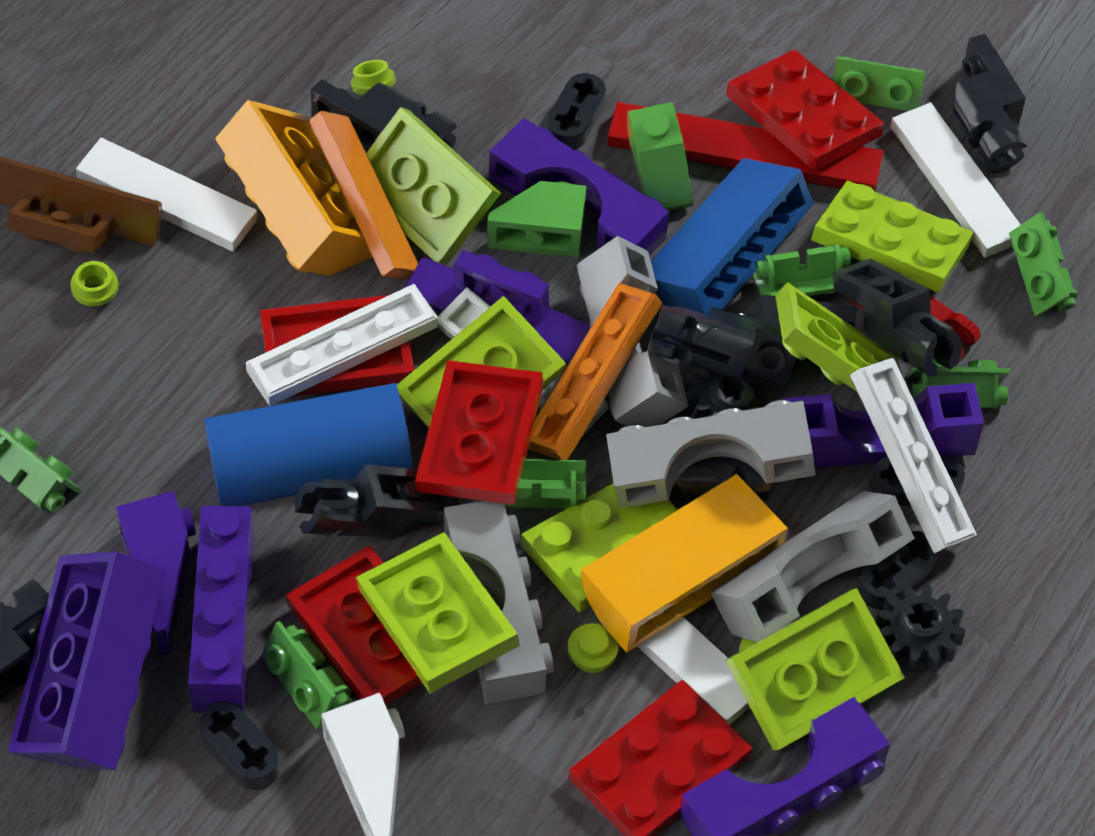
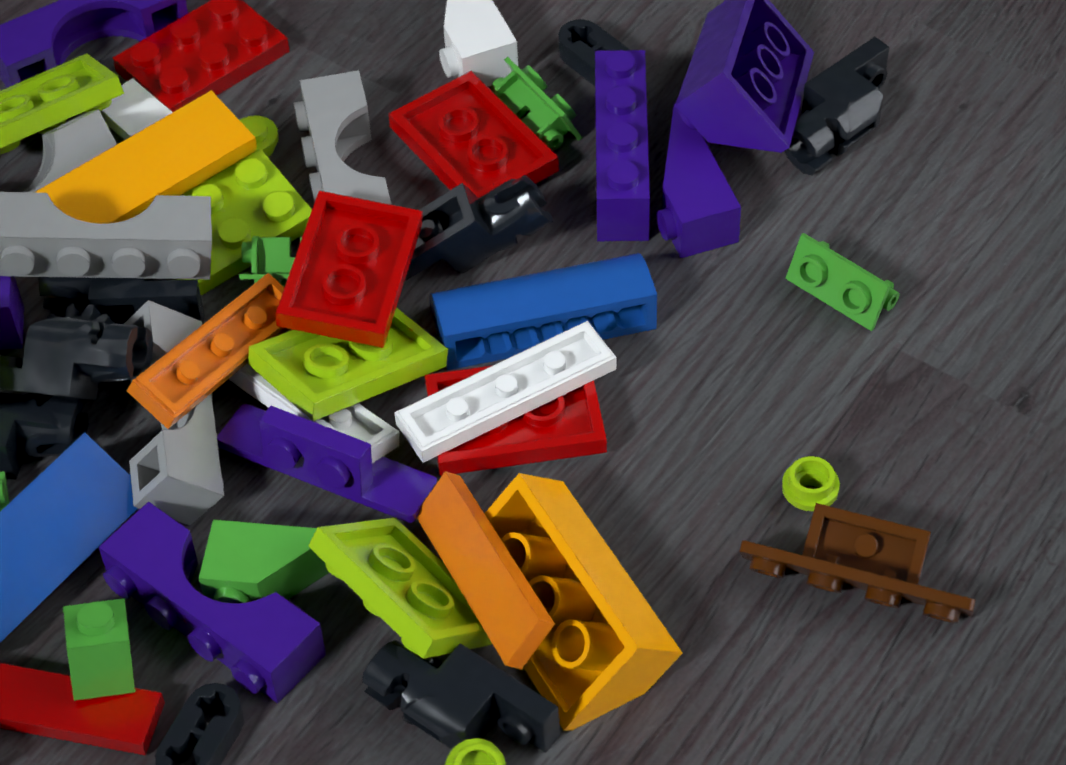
camera: 175 degrees left, 5 degrees down
(182, 199) = (743, 609): white tile -> none
(437, 612) = (403, 110): lime plate -> none

